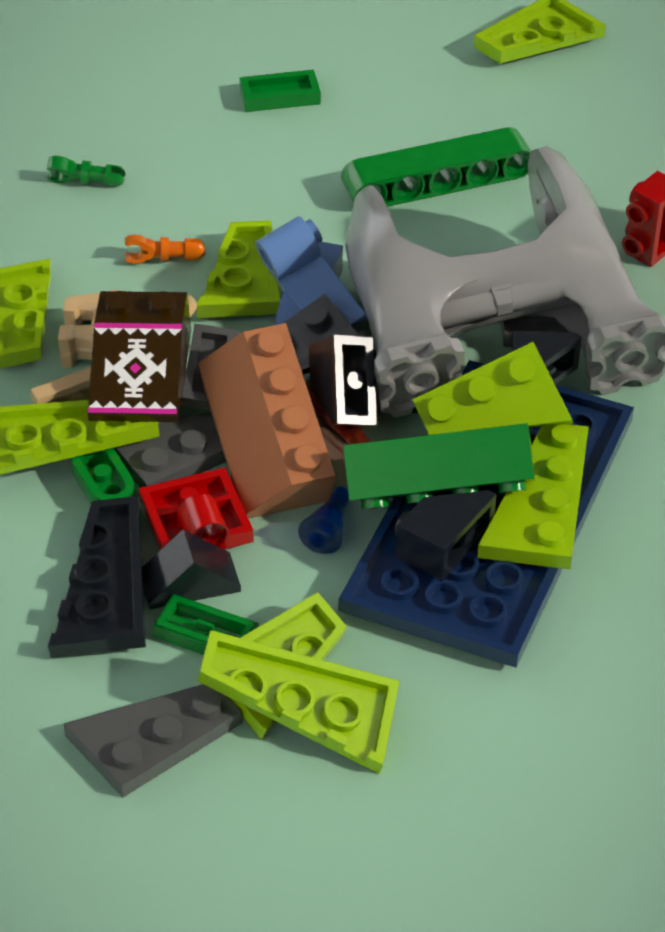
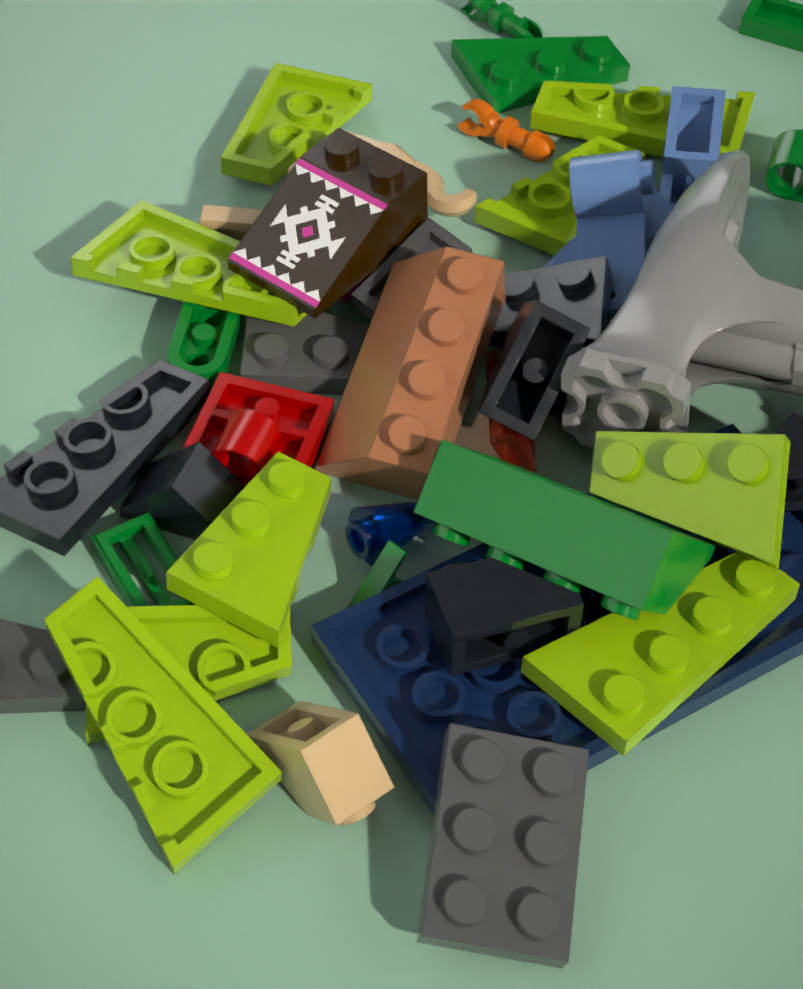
camera: 35 degrees right, 5 degrees up
(139, 198) = (513, 70): none -> green wing
(264, 195) = (628, 118): none -> lime wing
(275, 572) = (255, 550): none -> lime wing
(301, 195) = (691, 138): none -> medium blue slope
(349, 553) = (382, 573): none -> green piece
(419, 657) = (325, 761): none -> tan slope
(550, 647) = (504, 846): none -> dark grey plate

